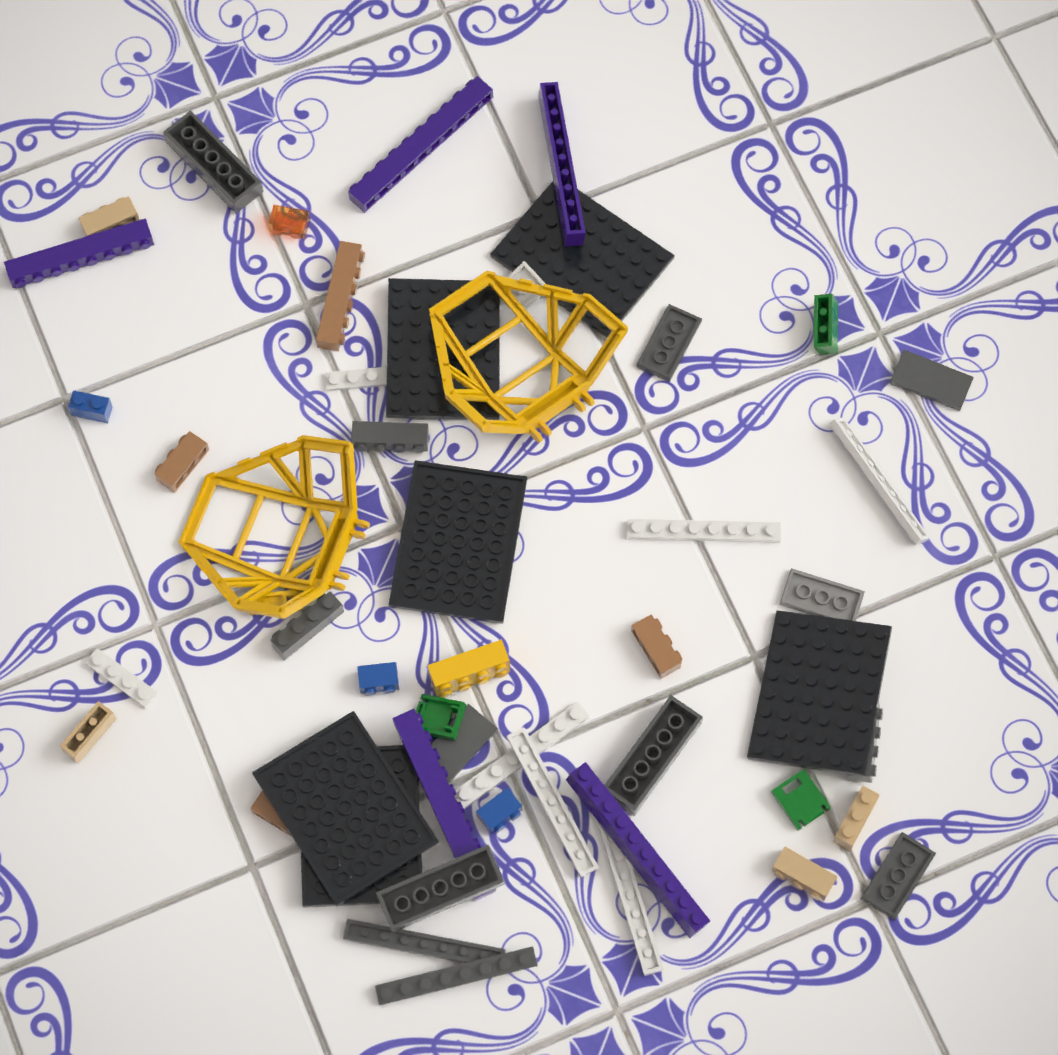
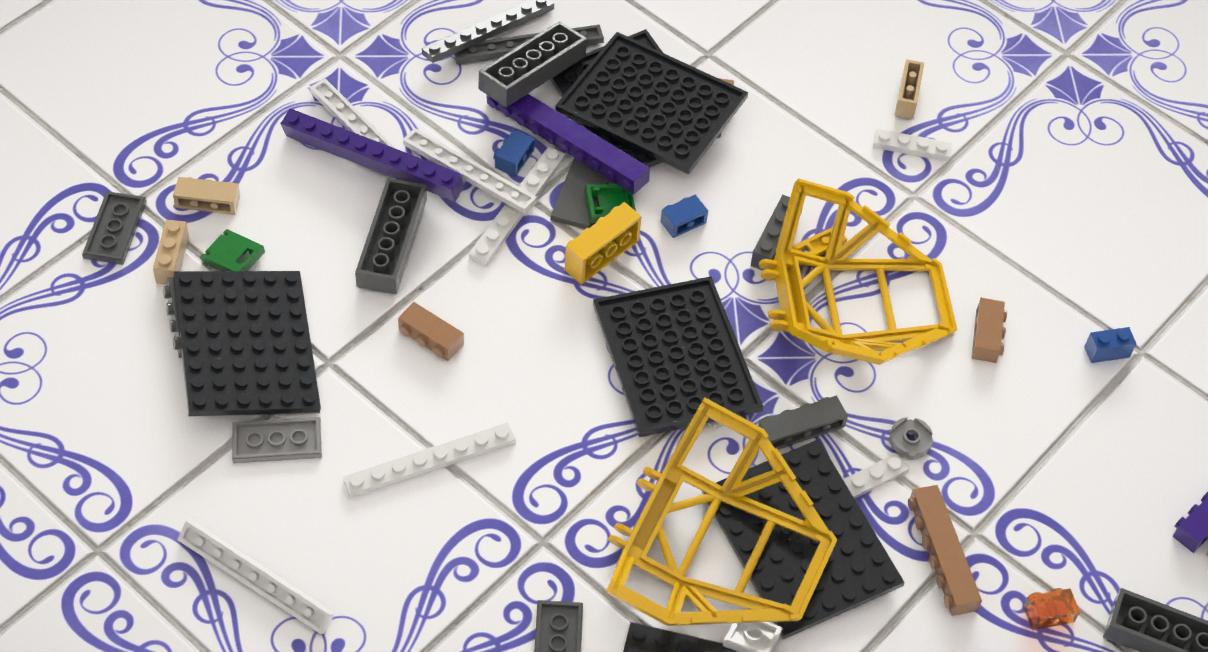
camera: 150 degrees right, 15 degrees down
(304, 405) = (906, 447): none -> light grey plate

